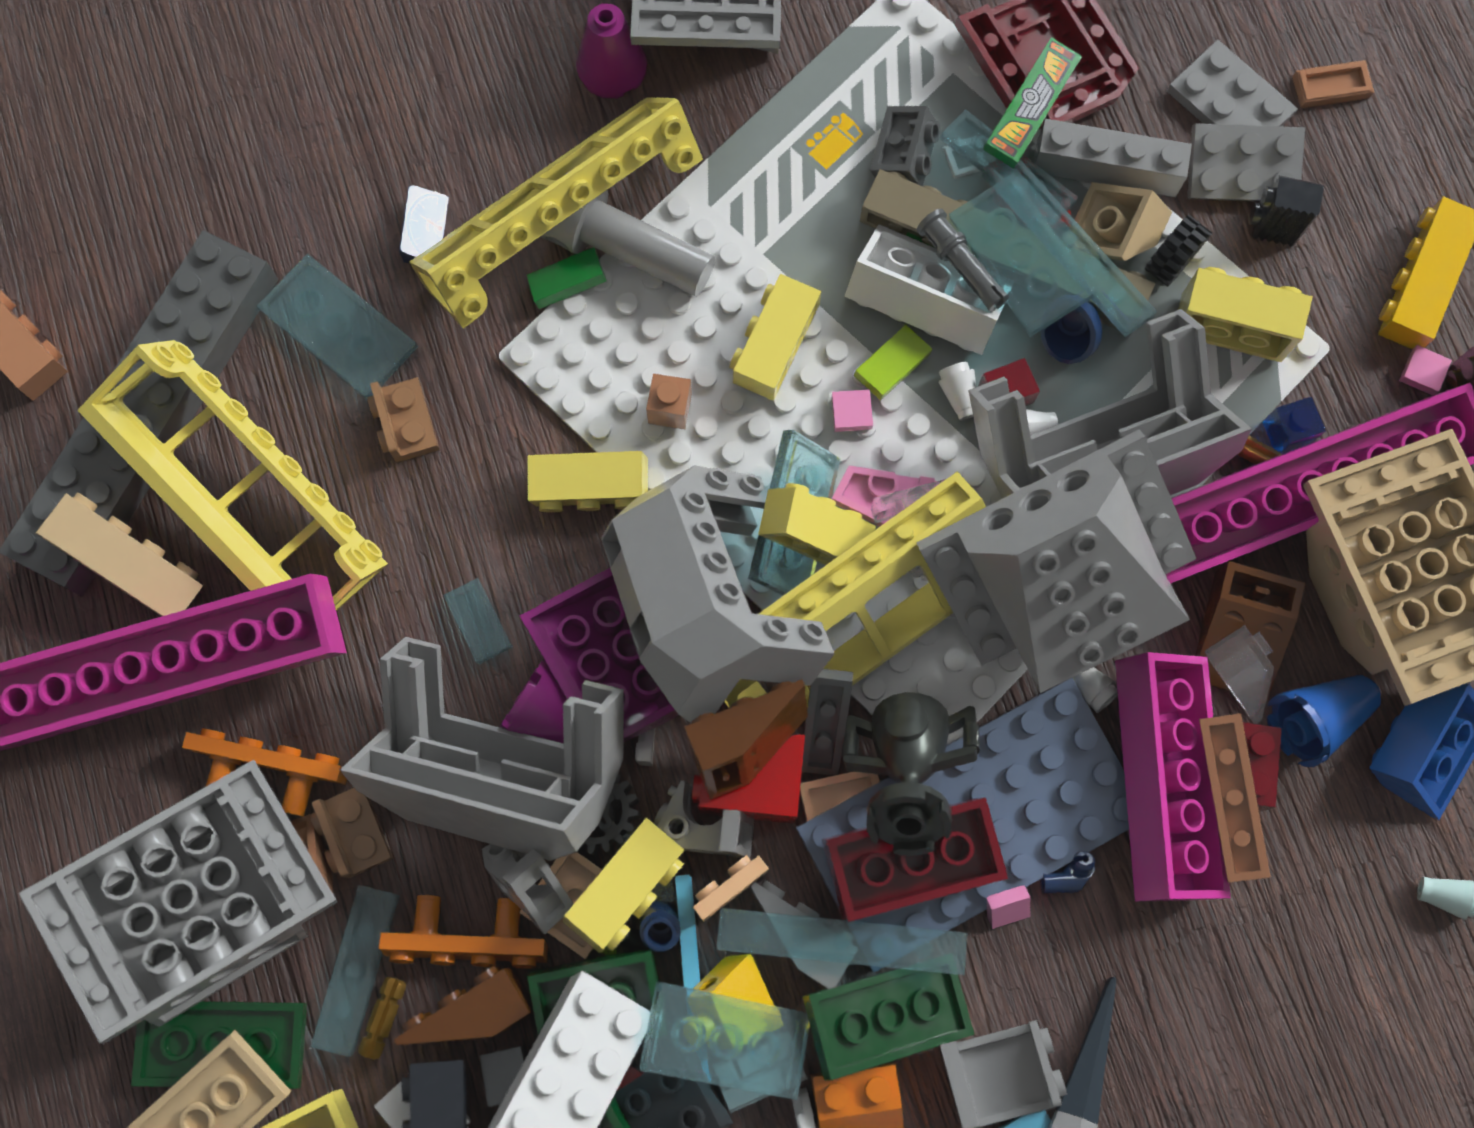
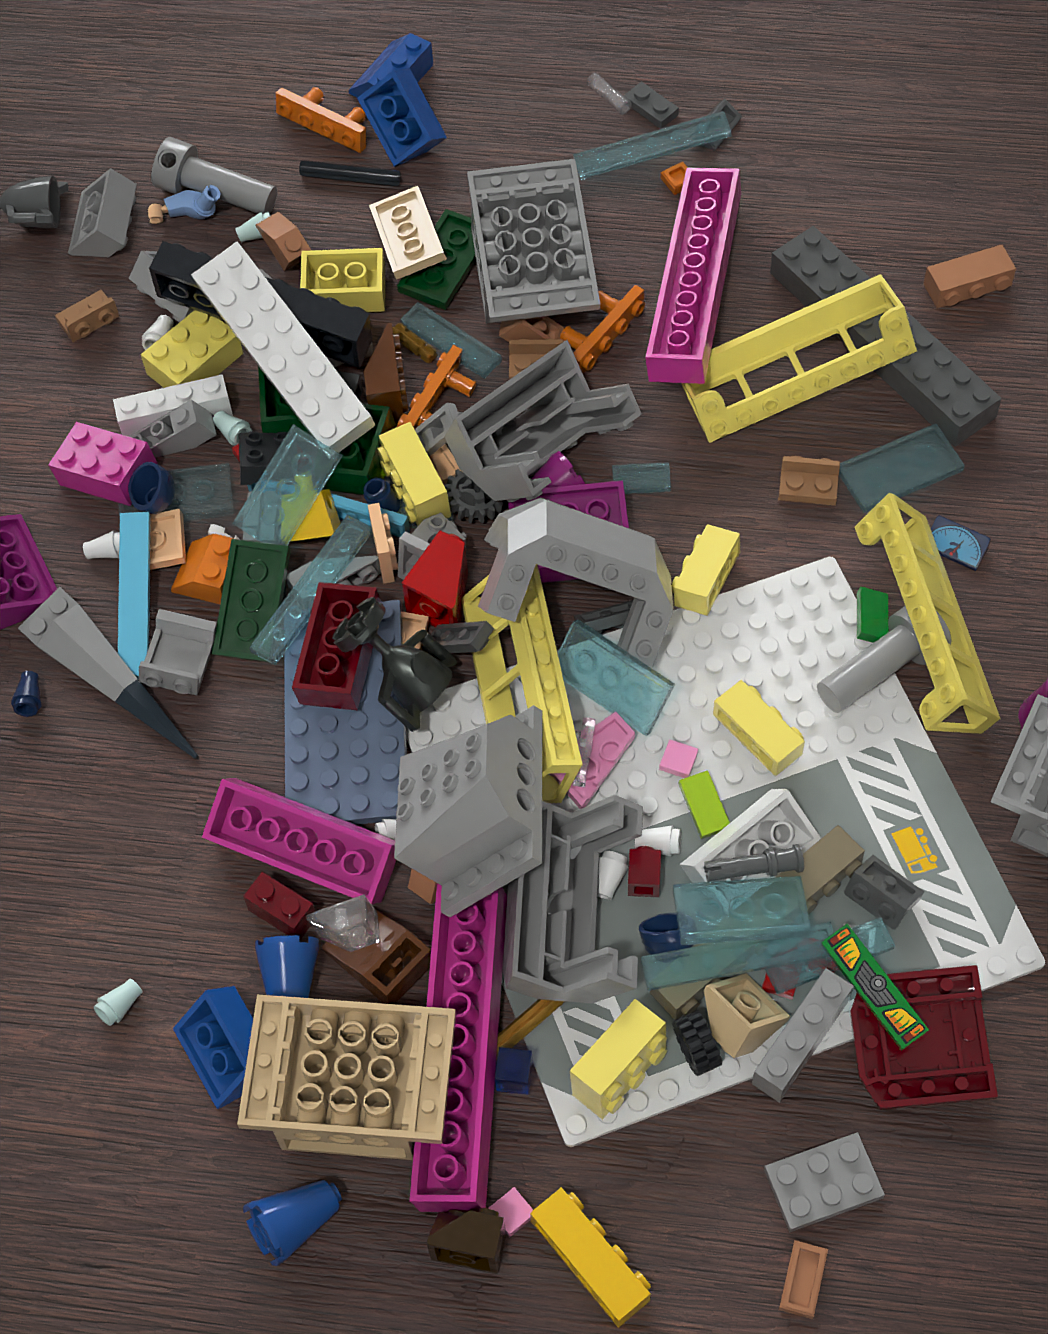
camera: 120 degrees right, 15 degrees down
(118, 557) = (775, 283): tan brick -> none
(669, 401) = (739, 636): nougat brick -> none
(742, 739) = (463, 554): reddish brown slope -> none
(811, 523) = (594, 674): light yellow brick -> none
(1008, 906) = (278, 708): bright pink tile -> none
(1073, 876) = (273, 759): dark blue arm -> none
(1234, 798) = (264, 863): nougat plate -> none
(1242, 160) = (756, 1154): light grey plate -> none
(1286, 210) = (695, 1151): black brick -> none

